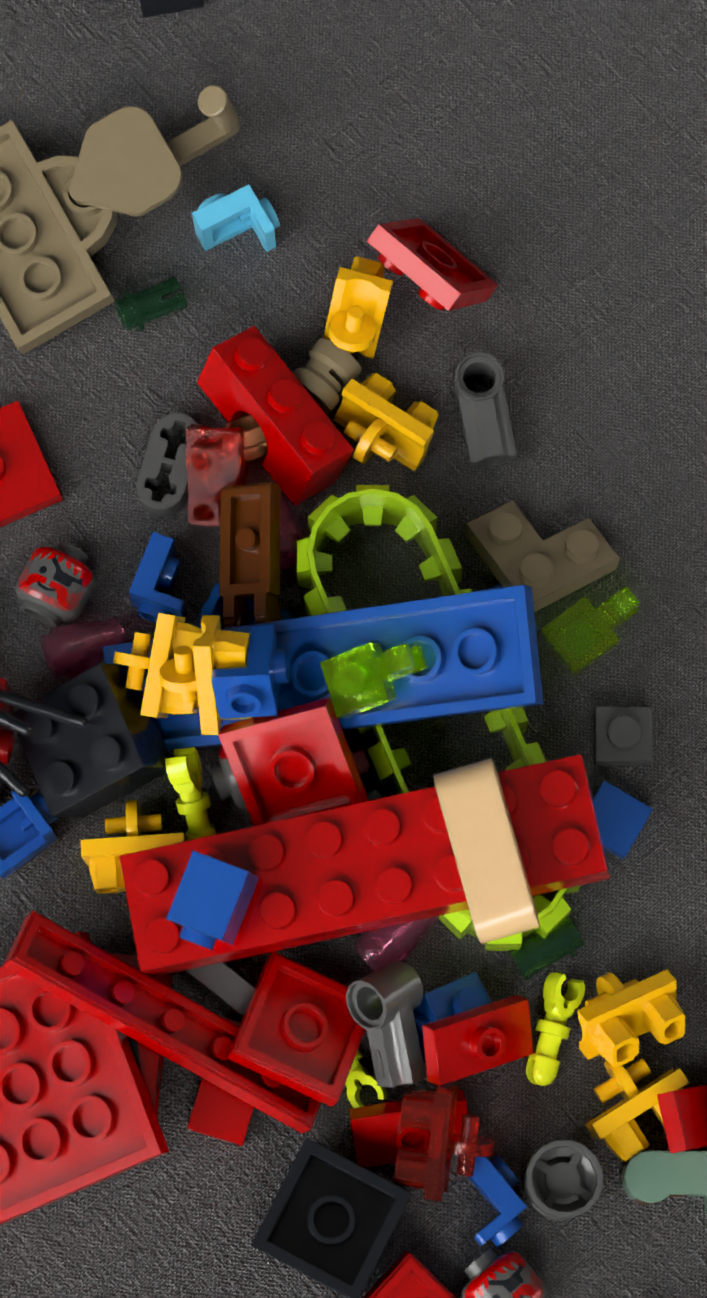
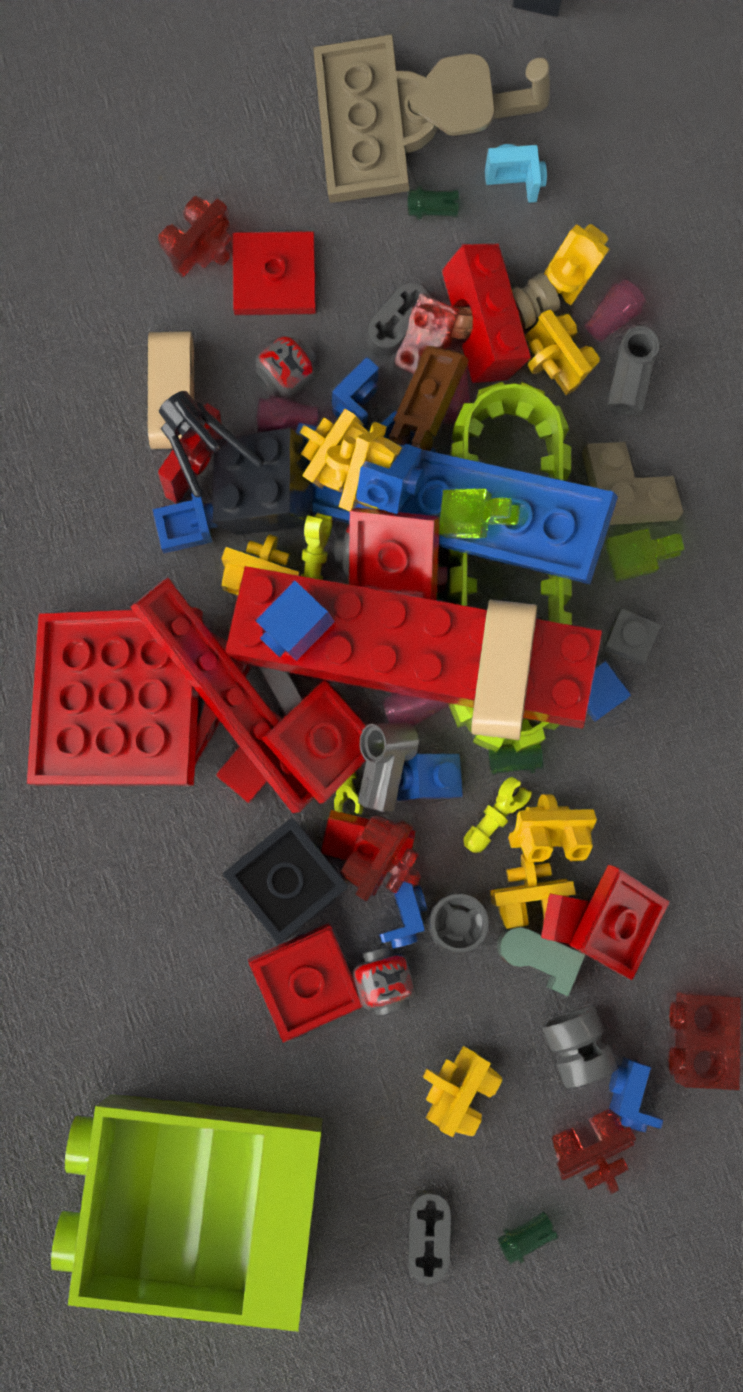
camera: 15 degrees right, 5 degrees up
(430, 343) = (616, 309): none -> clear pink cone
(439, 269) = (644, 260): red plate -> none
(477, 1040) = (440, 801): red plate -> none

